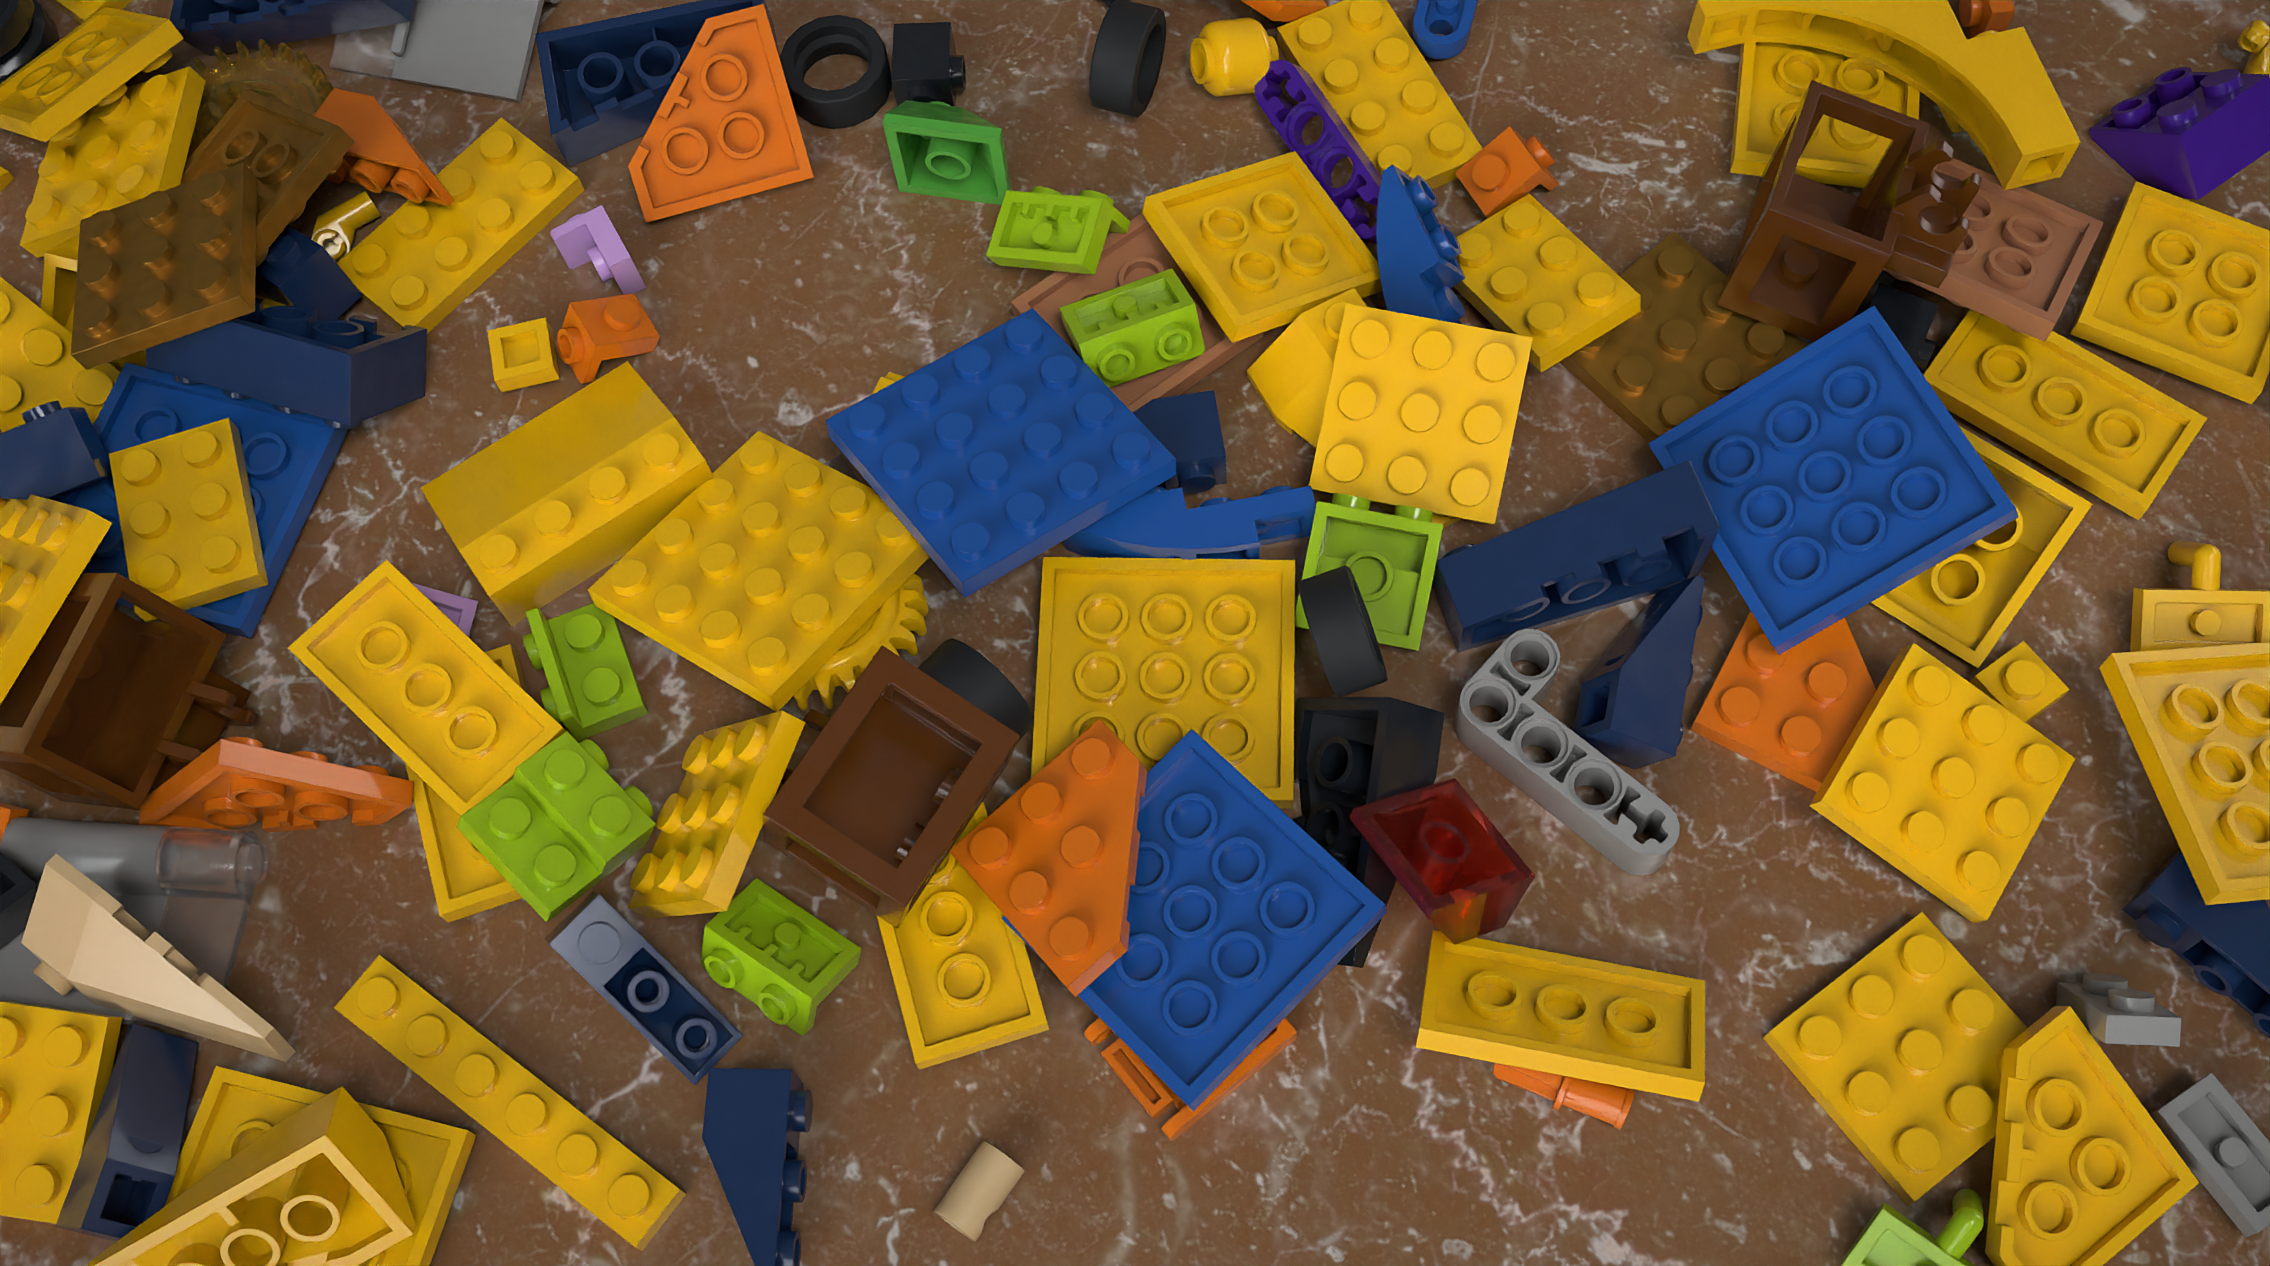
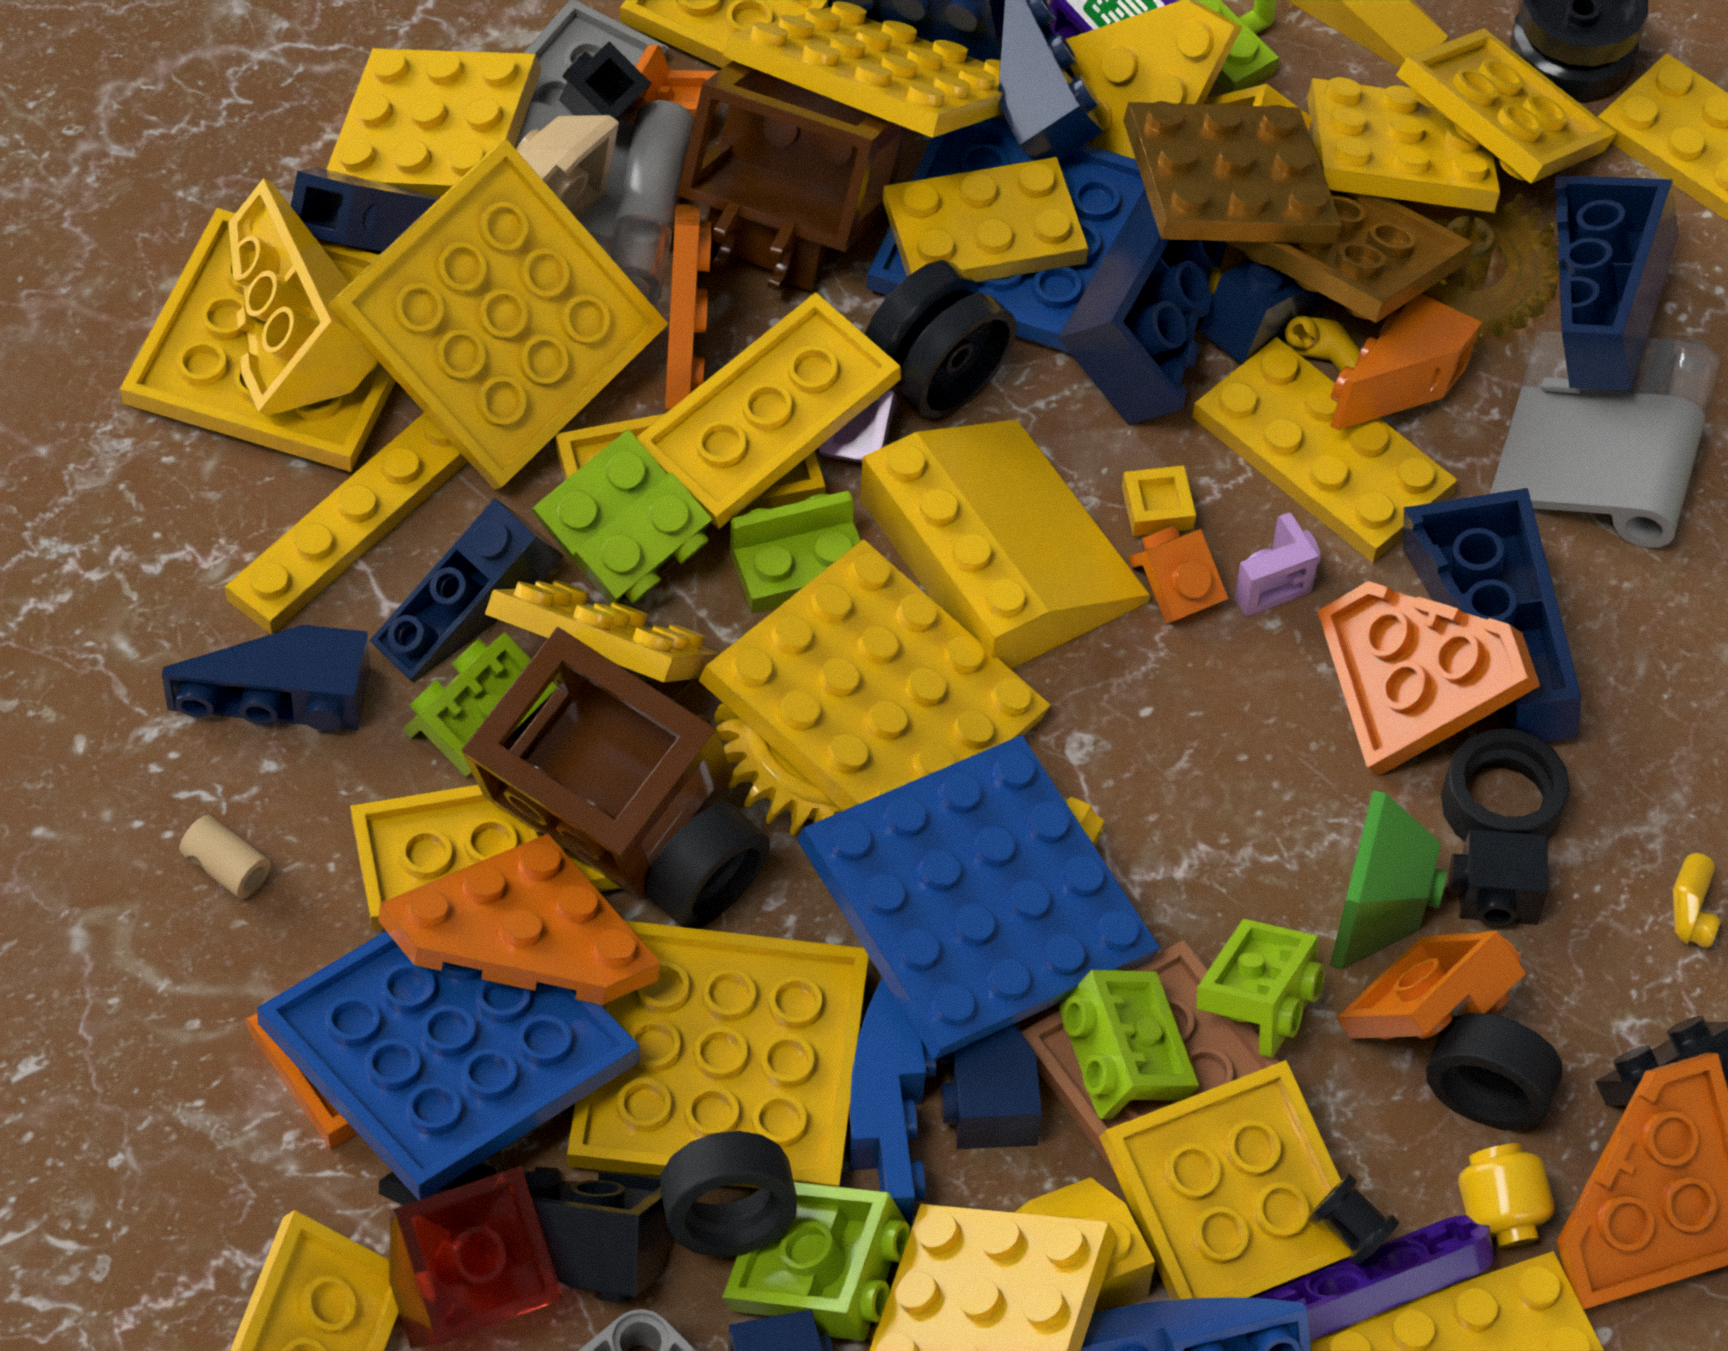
camera: 85 degrees right, 10 degrees down
(299, 970) = (498, 314): none -> yellow plate
(343, 538) = (942, 337): none -> black wheel
(1057, 99) = (1433, 983): none -> orange plate
(1287, 148) = (1353, 1219): none -> black bush

